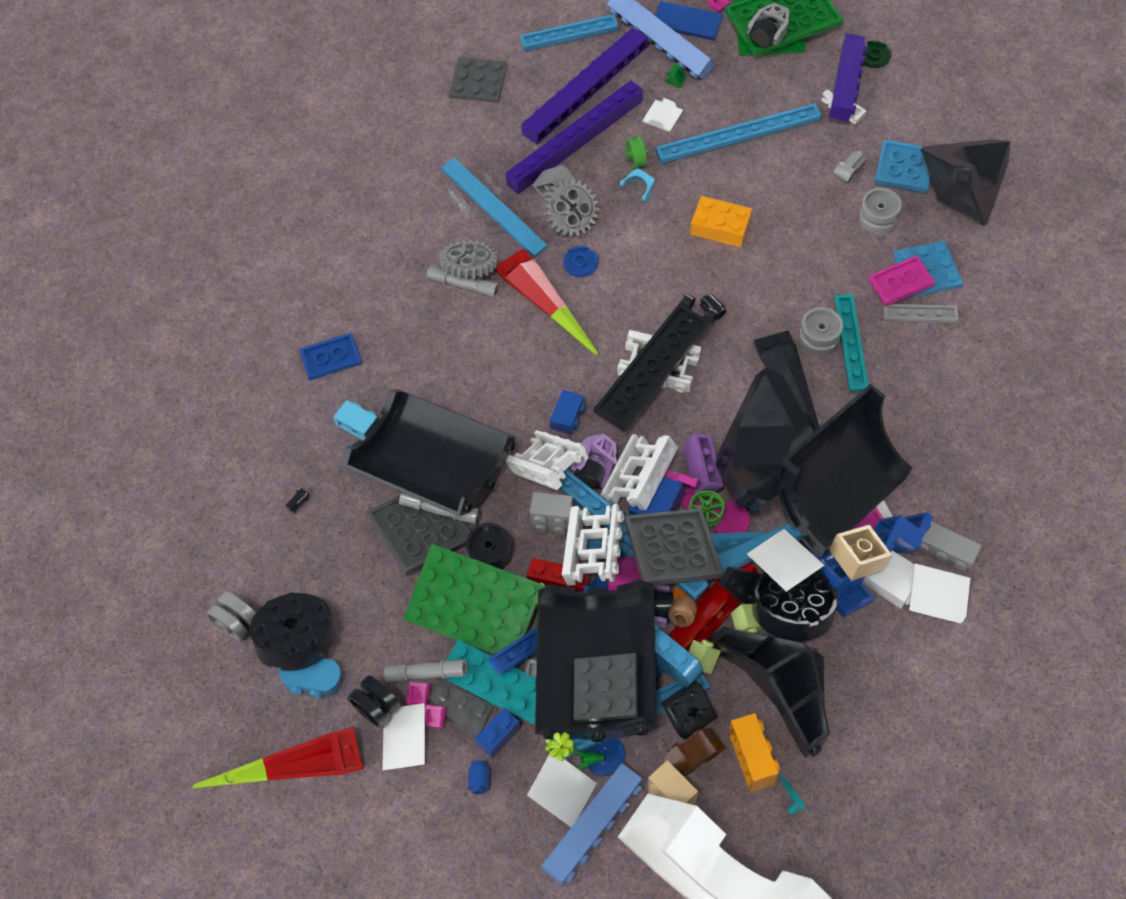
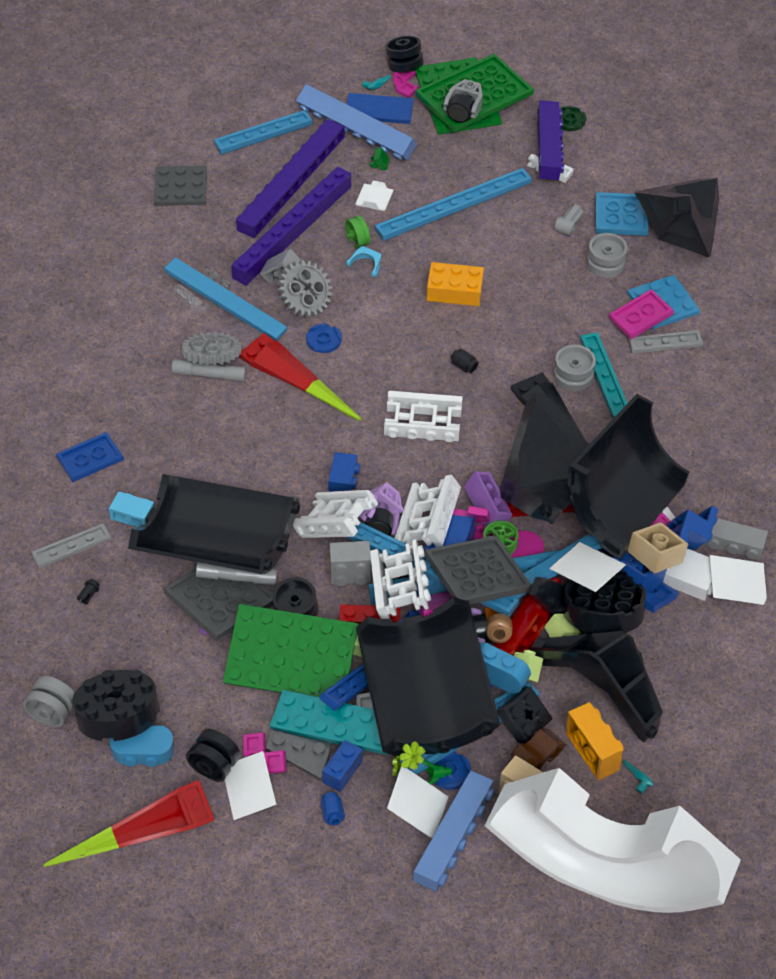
camera: 15 degrees left, 10 degrees down
(292, 448) = (71, 545): none -> light grey tile
(423, 671) = (259, 720): light grey piece -> none
(606, 687) = (442, 702): dark grey plate -> none
(654, 364) = (420, 416): black hinge -> none

